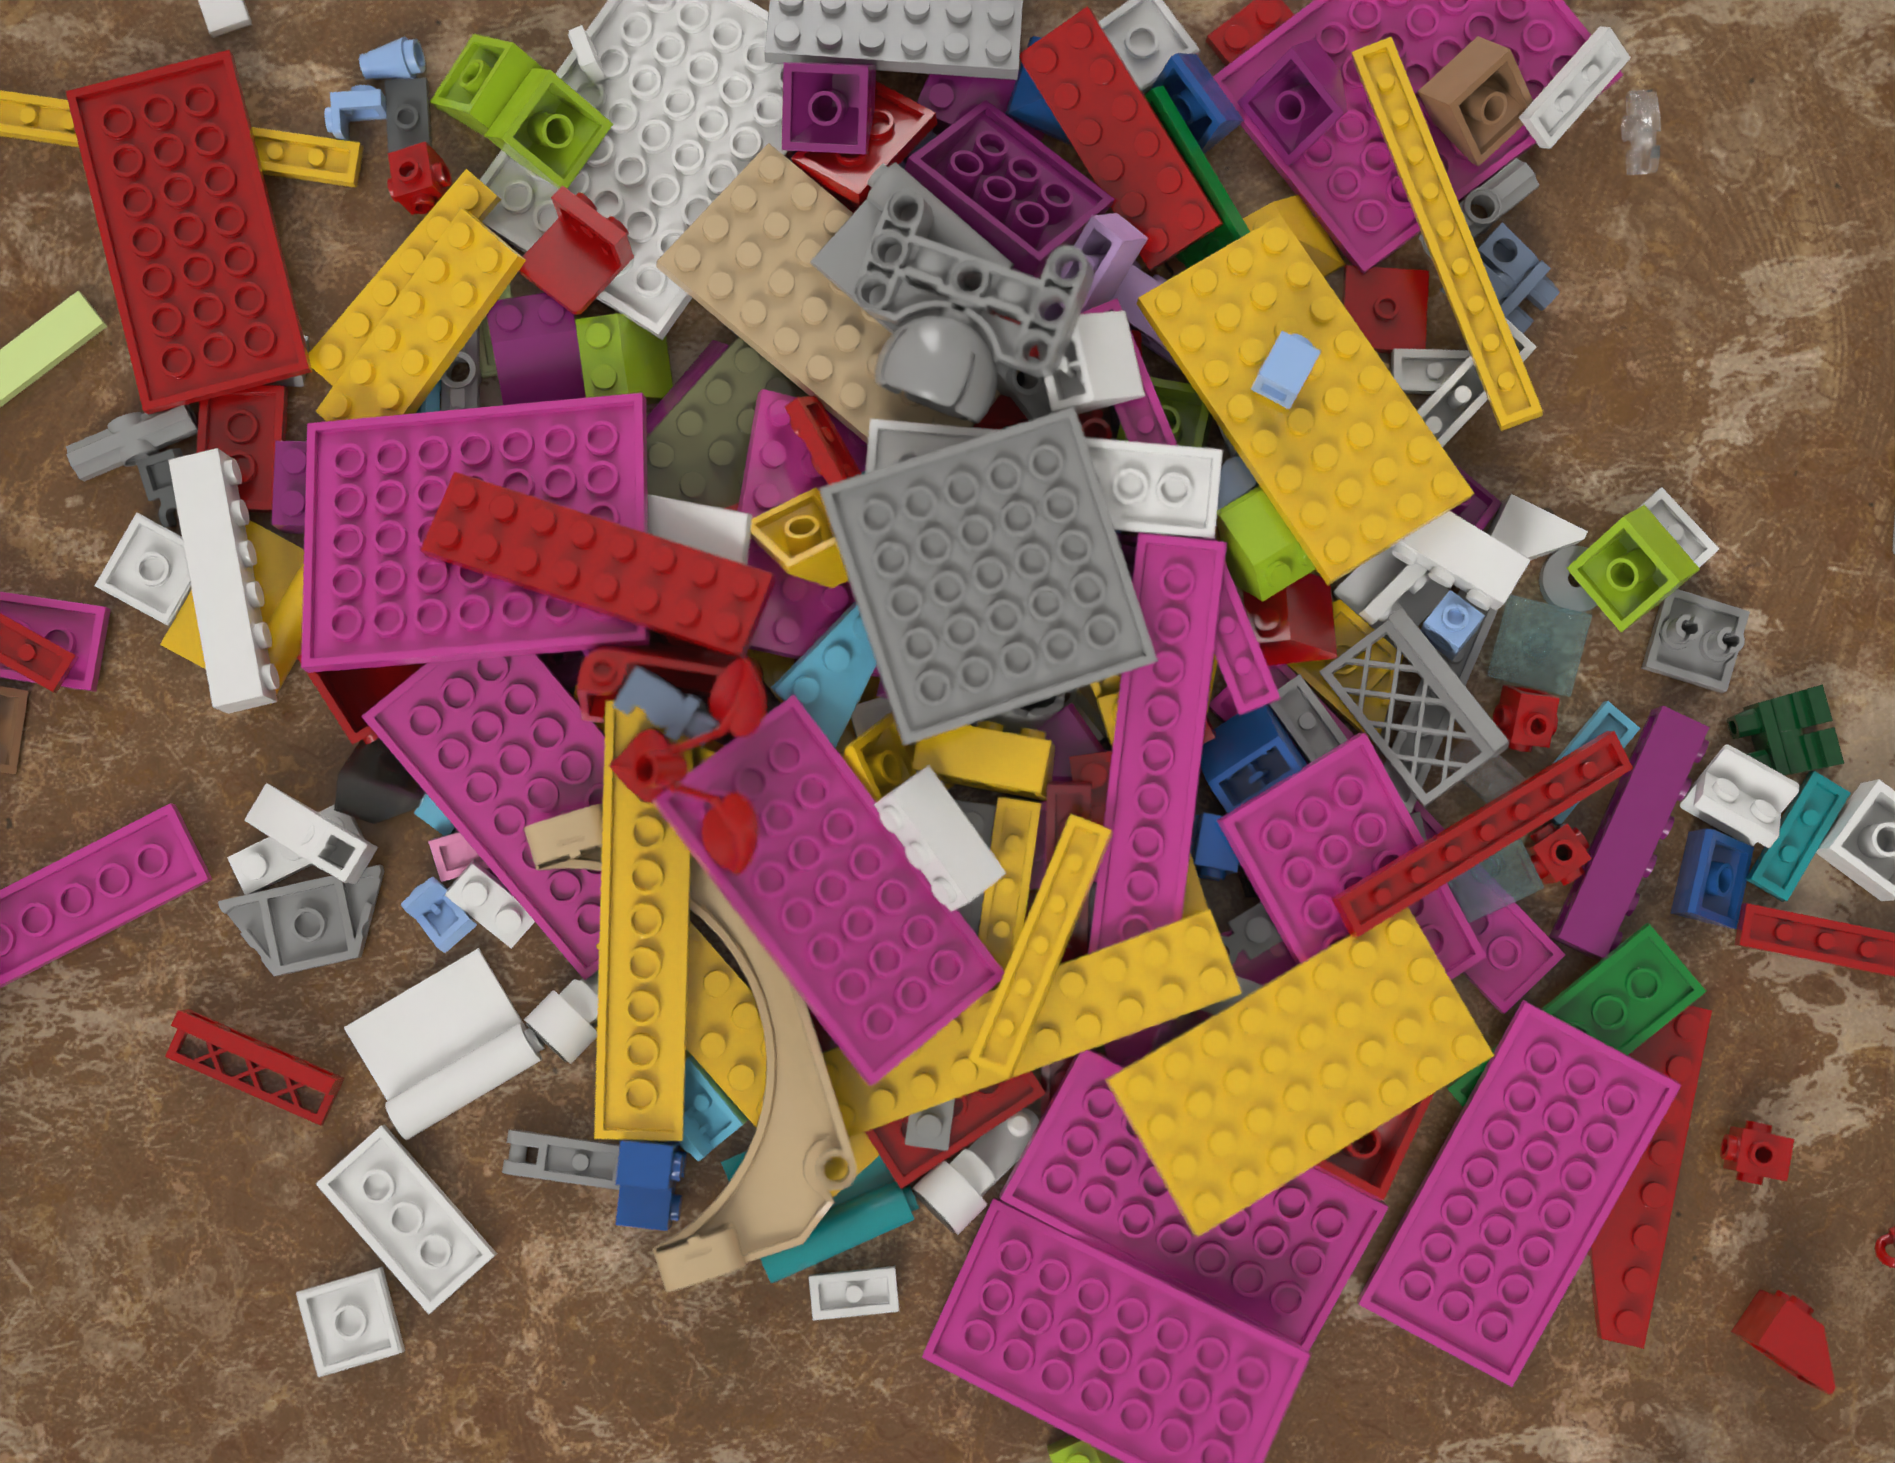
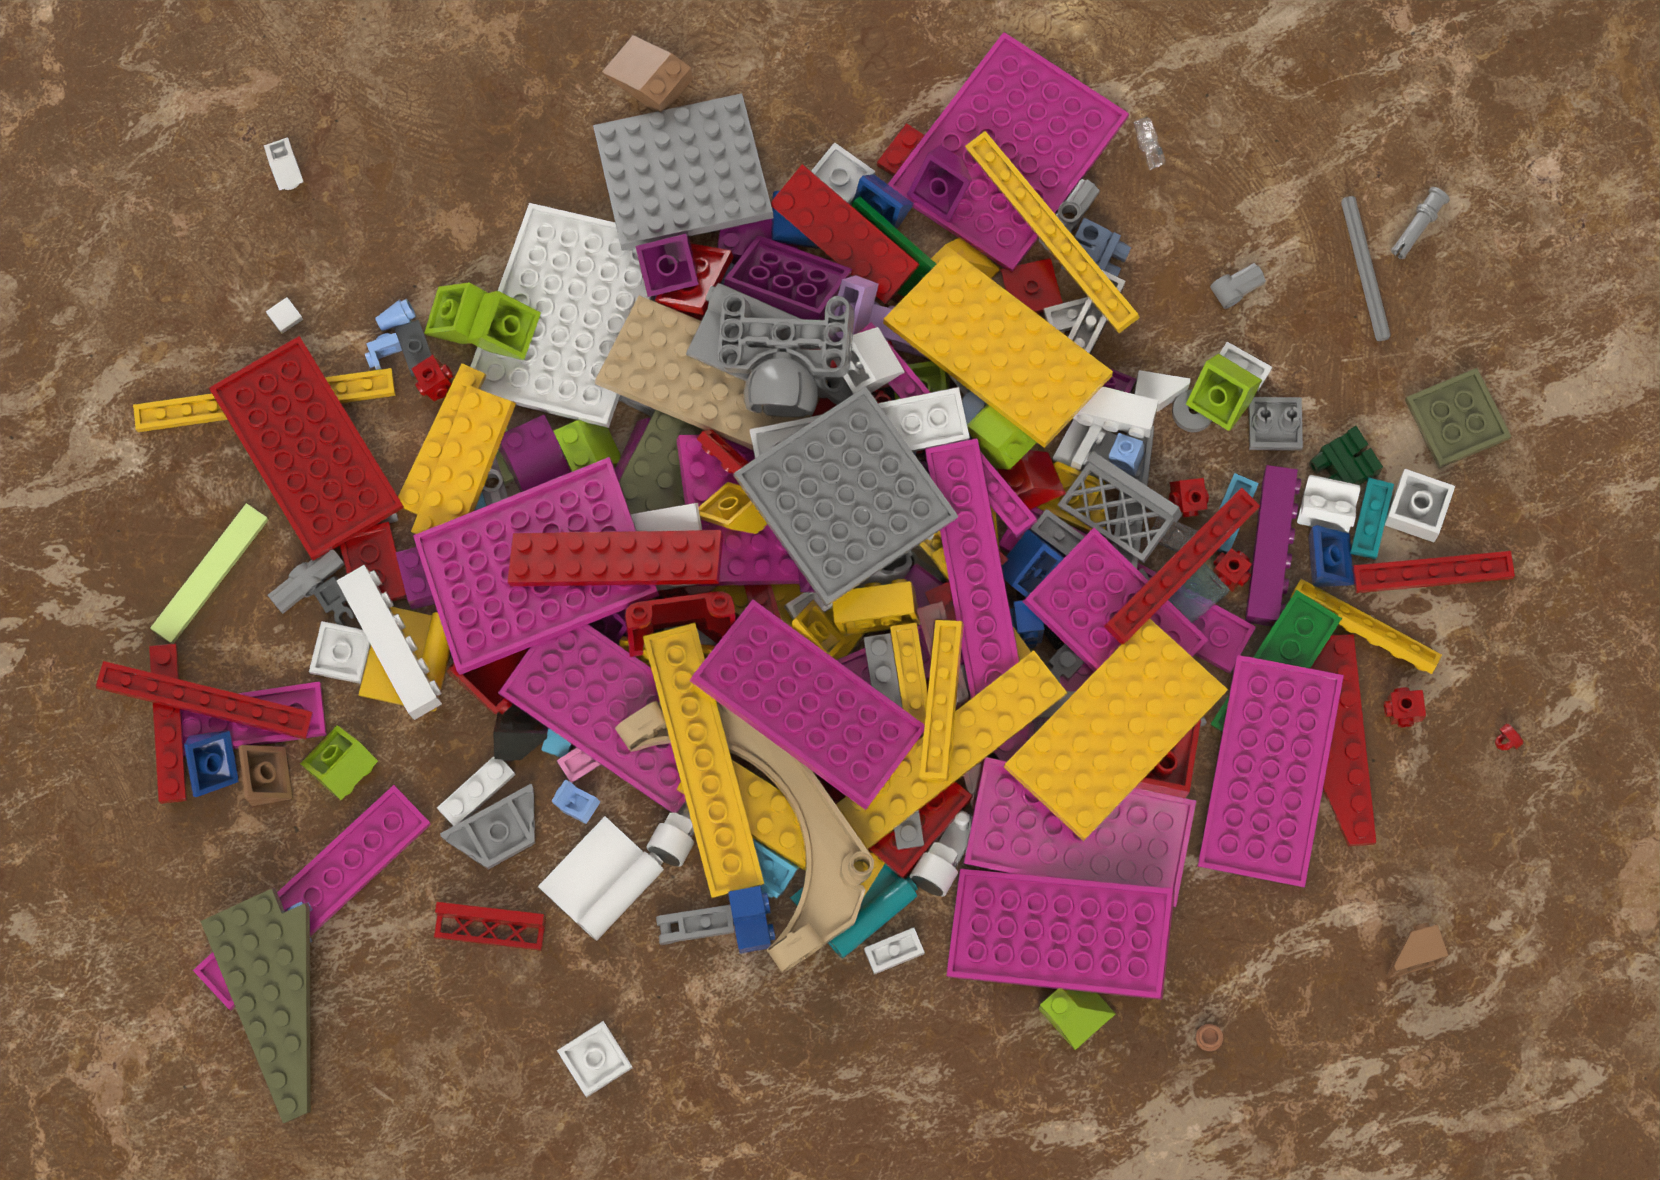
camera: 10 degrees left, 10 degrees down
(98, 743) = (339, 762): none -> lime slope
(311, 835) = (486, 774): white slope -> none
(406, 1219) = (610, 988): white plate -> none
(490, 903) = (605, 786): white plate -> none
(577, 253) = (544, 390): red bracket -> none
(586, 55) = (512, 276): white tile -> none
(654, 765) = (682, 658): red plant -> none
(664, 705) = (681, 624): sand blue hips -> none
(832, 674) = (771, 581): medium azure wing -> none
(939, 839) = (863, 657): white brick -> none
(1286, 369) = (981, 332): light blue brick -> none
(1478, 99) = (1048, 151): medium nougat slope -> none
(1539, 645) = (1183, 453): clear light blue plate -> none
(1574, 87) = (1102, 128): white plate -> none
(1696, 403) = (1232, 288): none -> light grey piece
(1742, 1011) = (1374, 630): none -> yellow plate
(1788, 1336) = (1457, 807): red slope -> none

